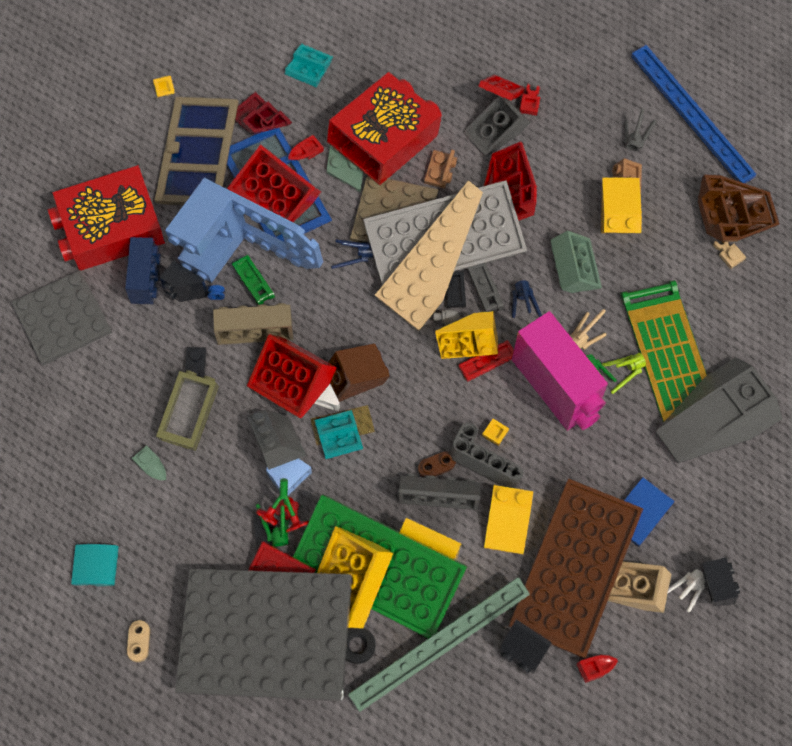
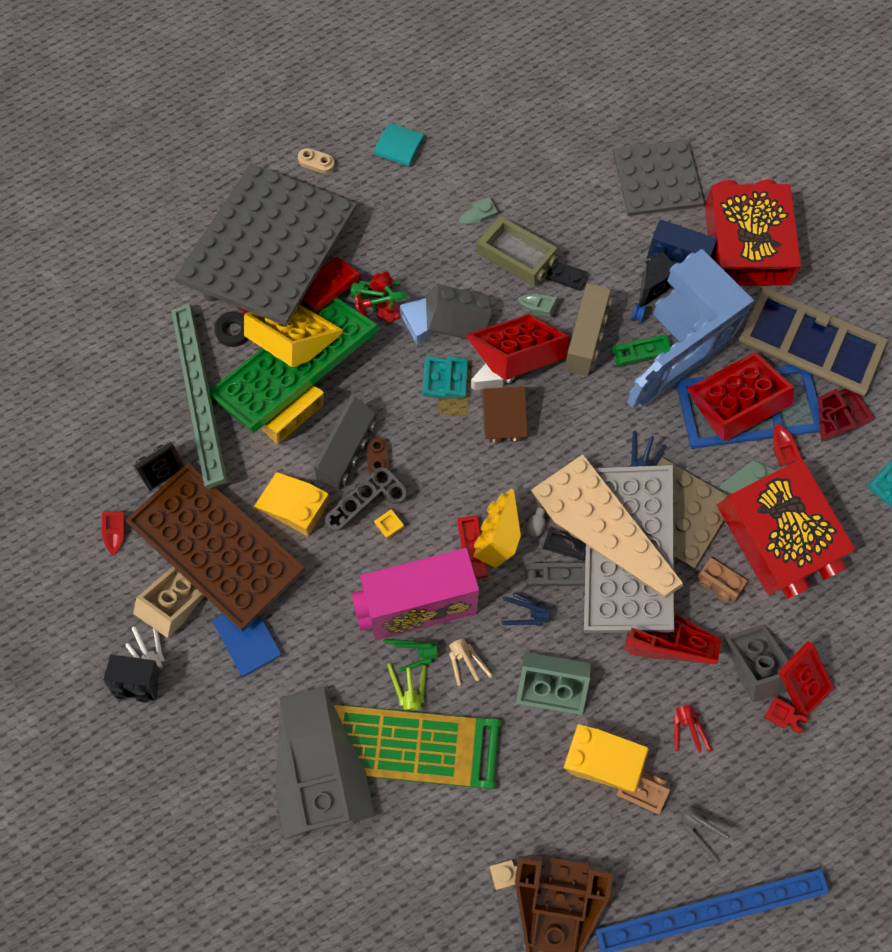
camera: 110 degrees right, 0 degrees up
(235, 378) = (539, 304): none -> sand green plate
(561, 163) = (688, 718): none -> red plant

